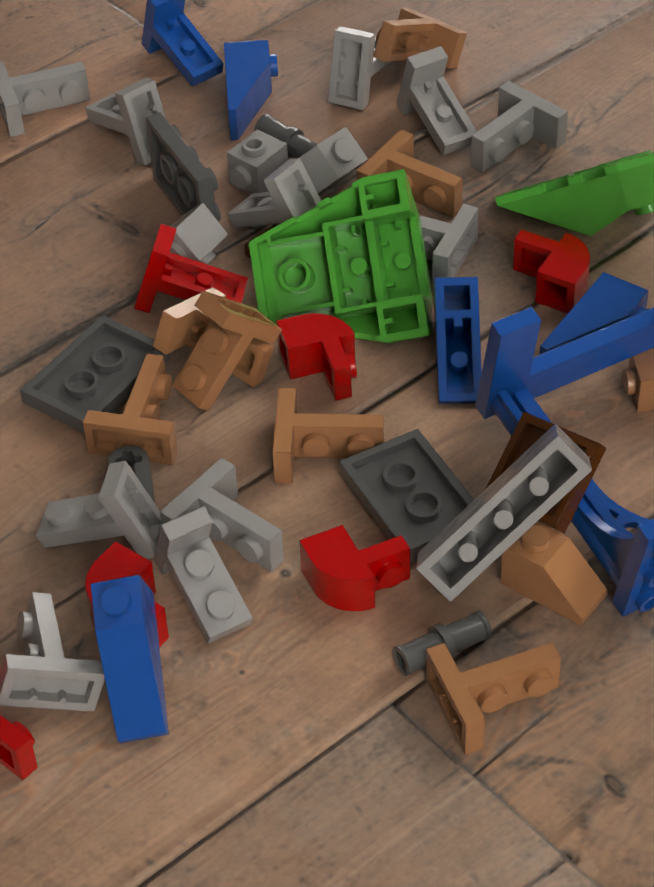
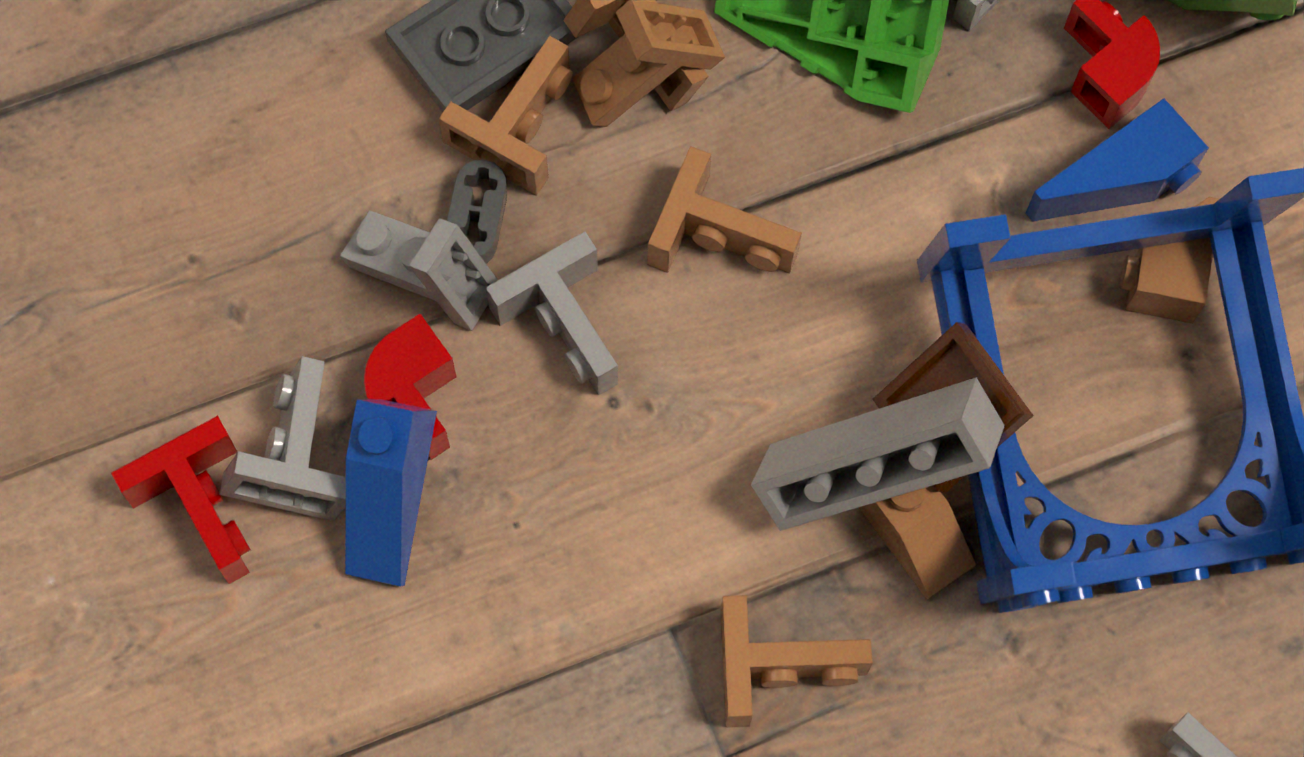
camera: 15 degrees right, 25 degrees up
(201, 575) = (508, 398): light grey bracket -> none
(318, 345) = (770, 80): red brick -> none
(348, 576) = (677, 447): red brick -> none
(406, 488) = (797, 348): dark grey plate -> none
(455, 635) = (753, 576): dark grey pin -> none
(457, 339) = (940, 139): blue slope -> none

